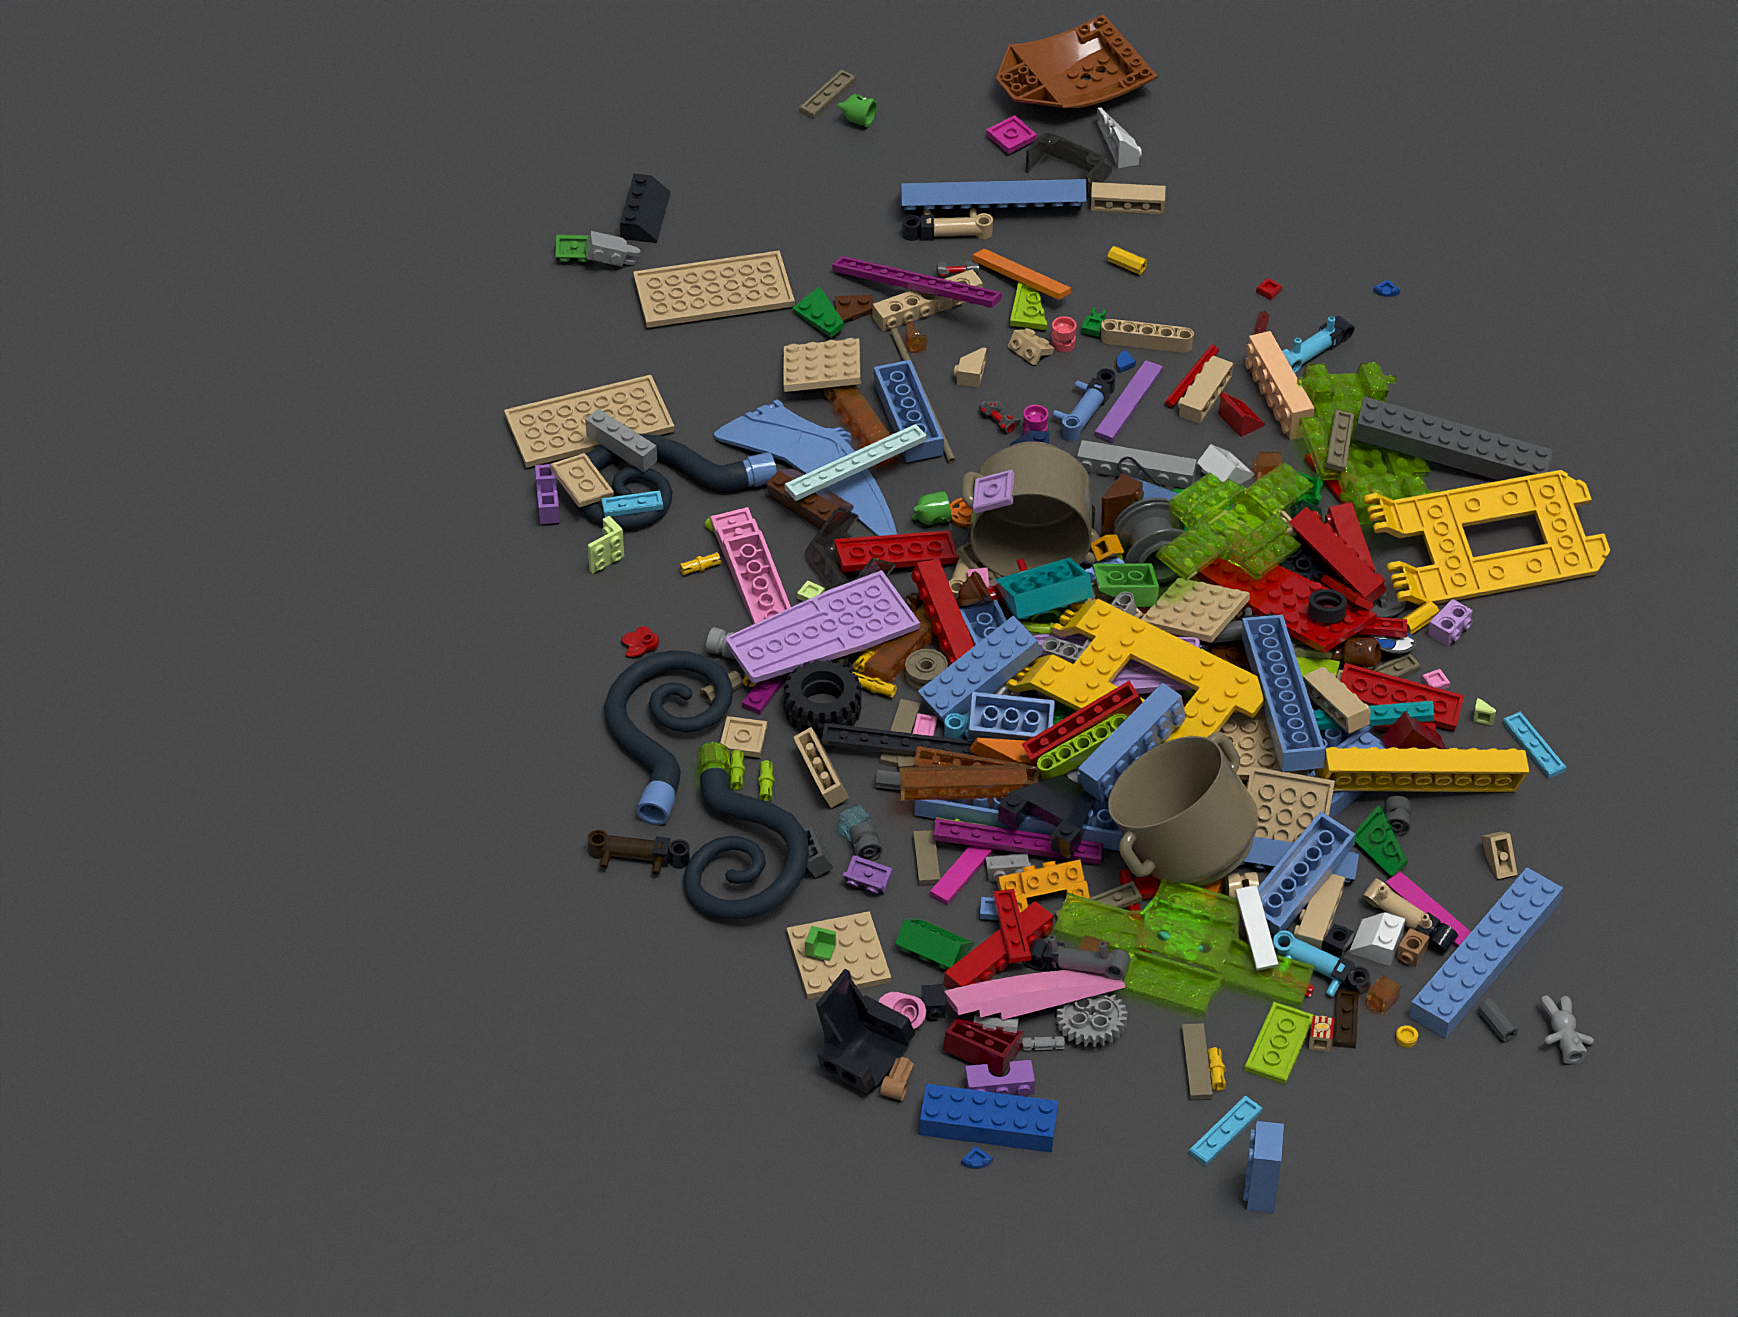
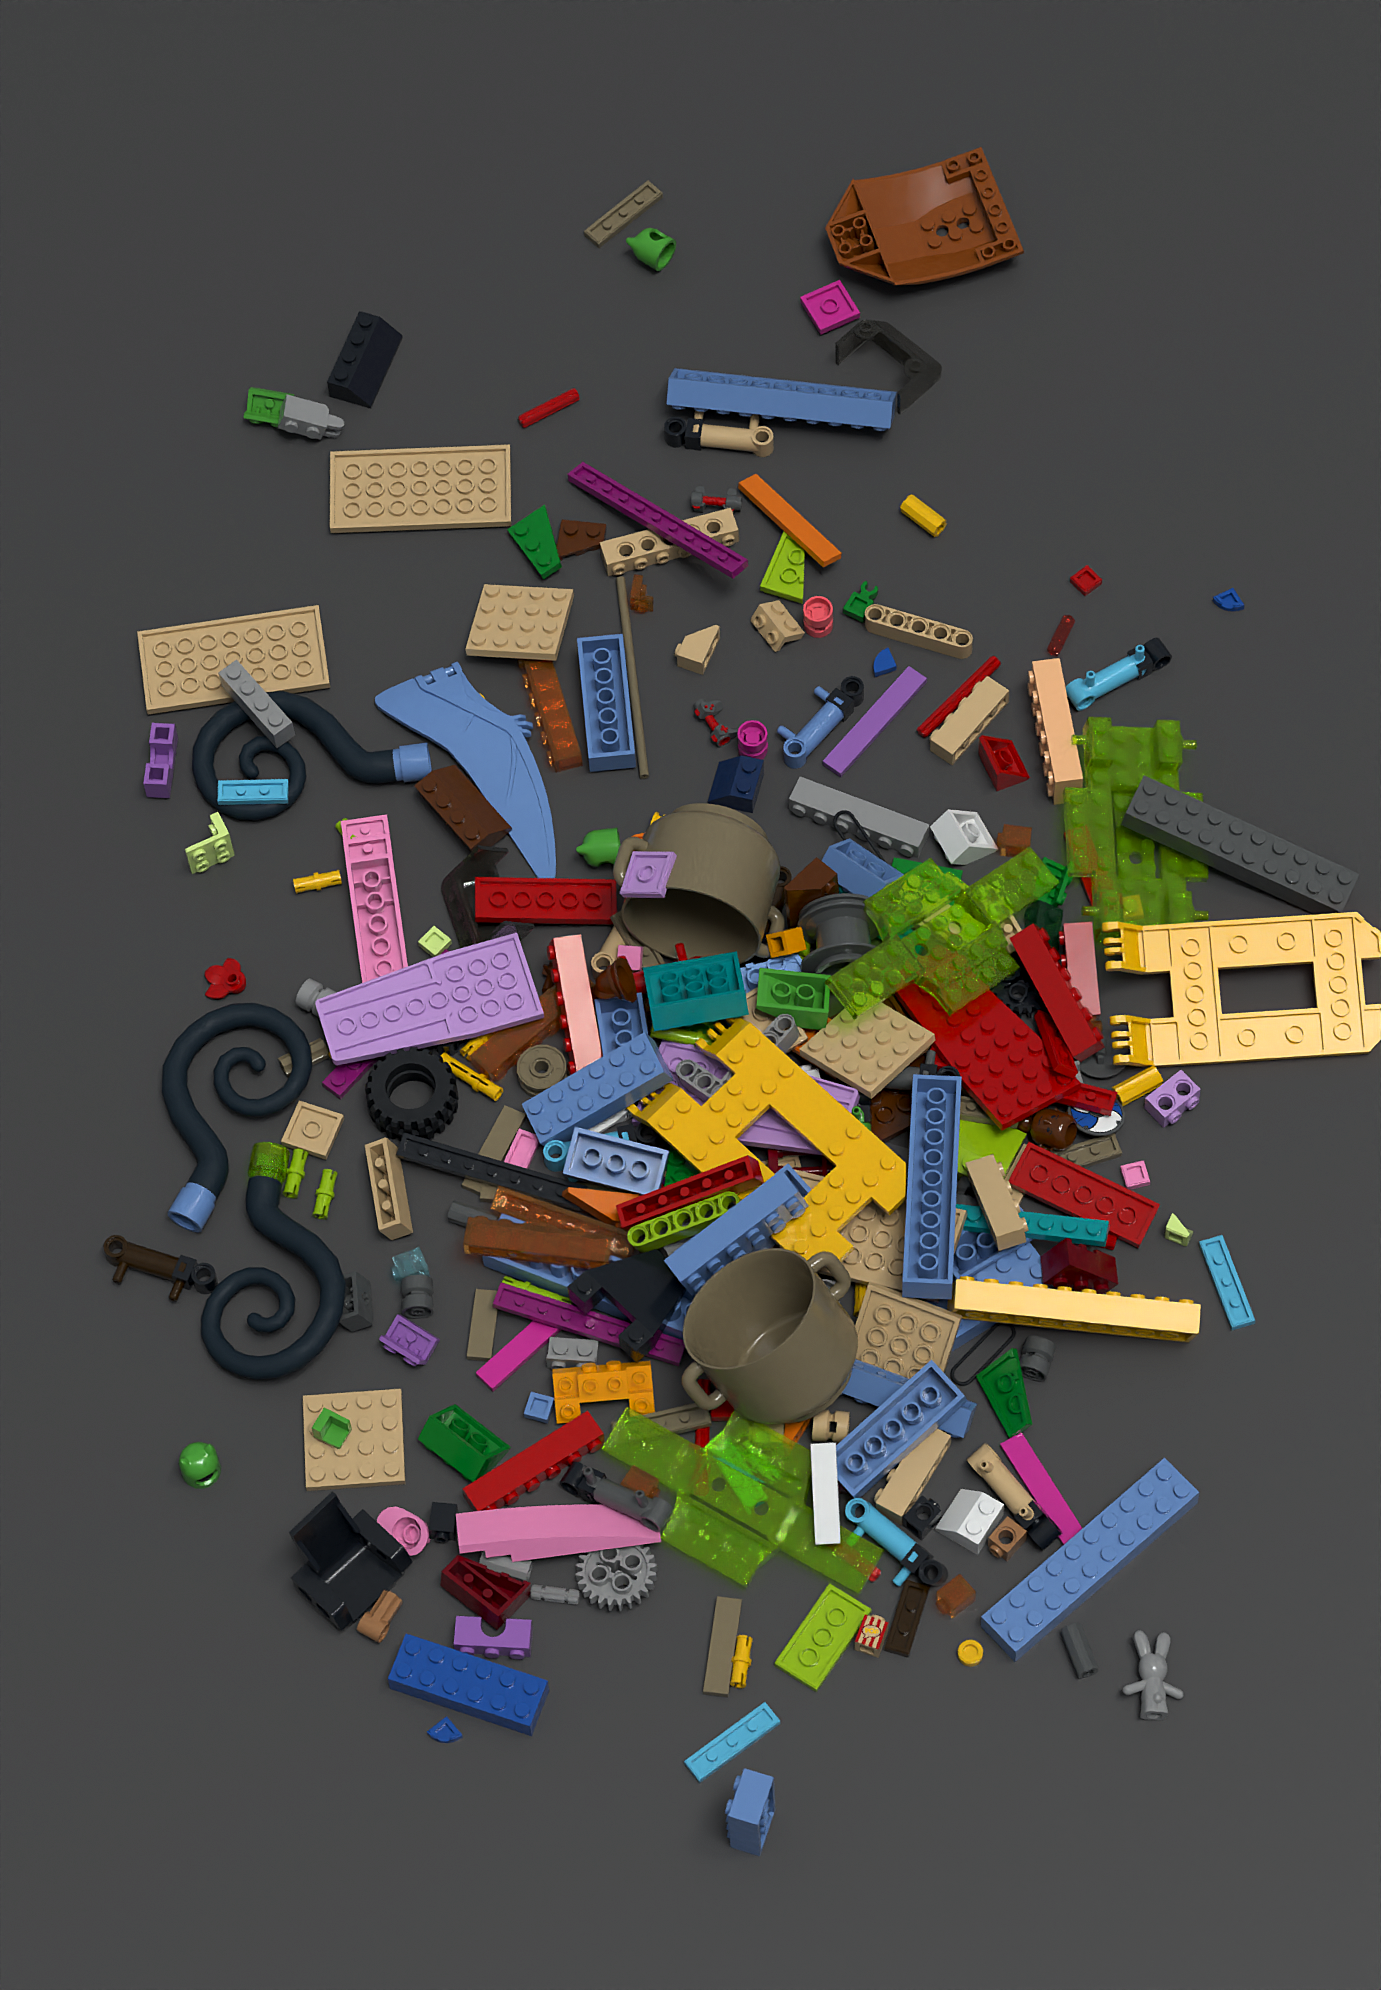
camera: 15 degrees right, 15 degrees up
(581, 480) = (201, 751): tan tile -> none
(710, 984) = (197, 1462): none -> bright green piece
(803, 224) = (548, 407): none -> red axle
(855, 462) = (521, 776): light aqua plate -> none
(1011, 926) = (551, 1441): red tile -> none
(1120, 143) = (959, 341): white wedge -> none
(1128, 198) = (947, 423): tan brick -> none
(1324, 614) = (1020, 1054): black tyre -> none
(1339, 440) = (1103, 828): dark tan tile -> none
(1364, 816) = (975, 1346): none -> black piece
(1500, 854) = (1142, 1429): tan slope -> none

